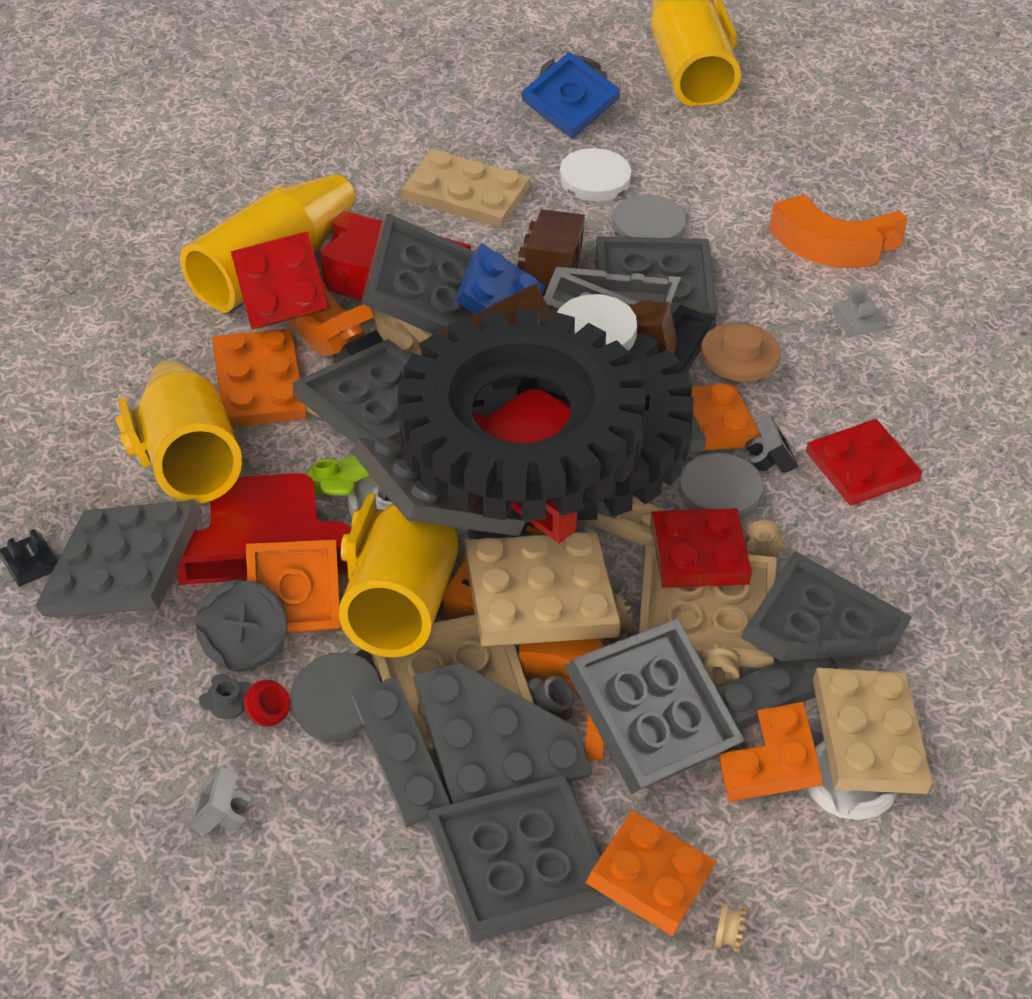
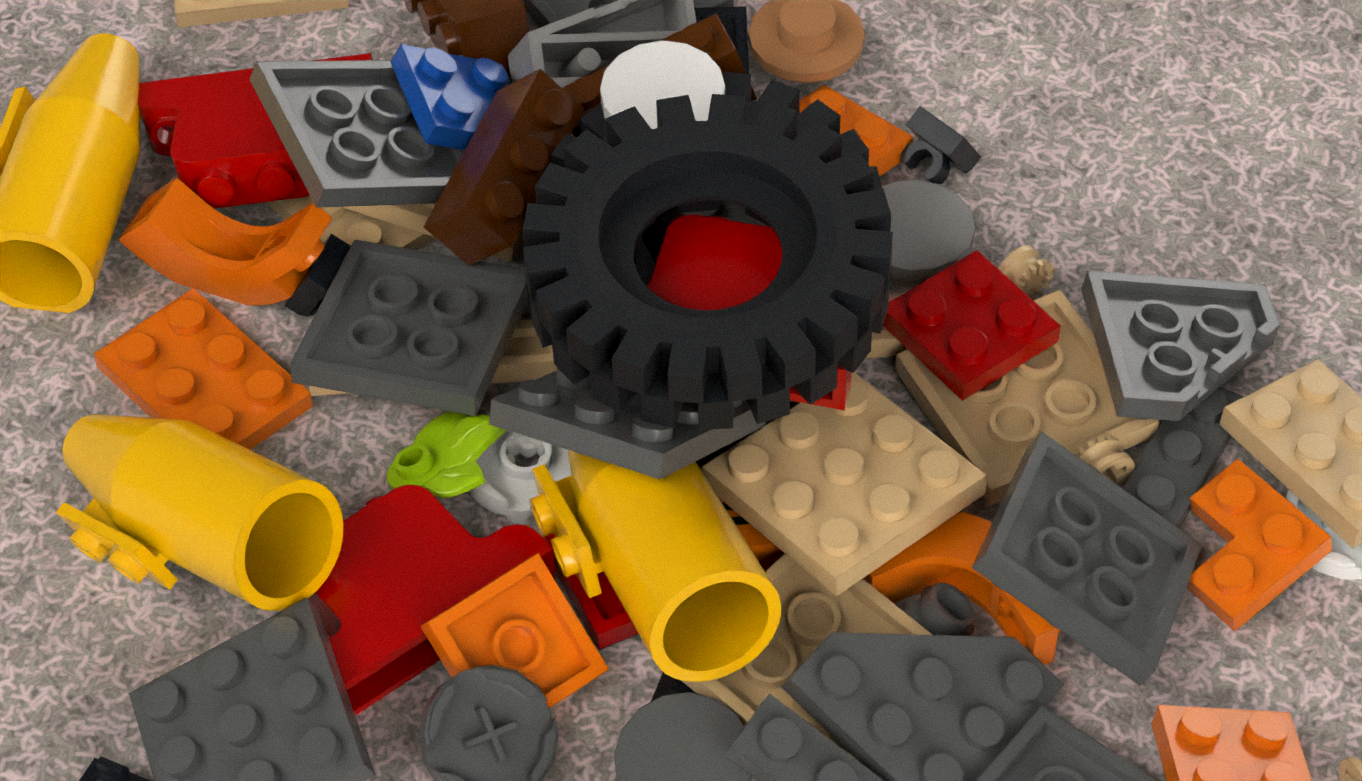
camera: 30 degrees left, 5 degrees up
(279, 280) = (154, 228): red plate -> none
(863, 462) = (1051, 111): red plate -> none

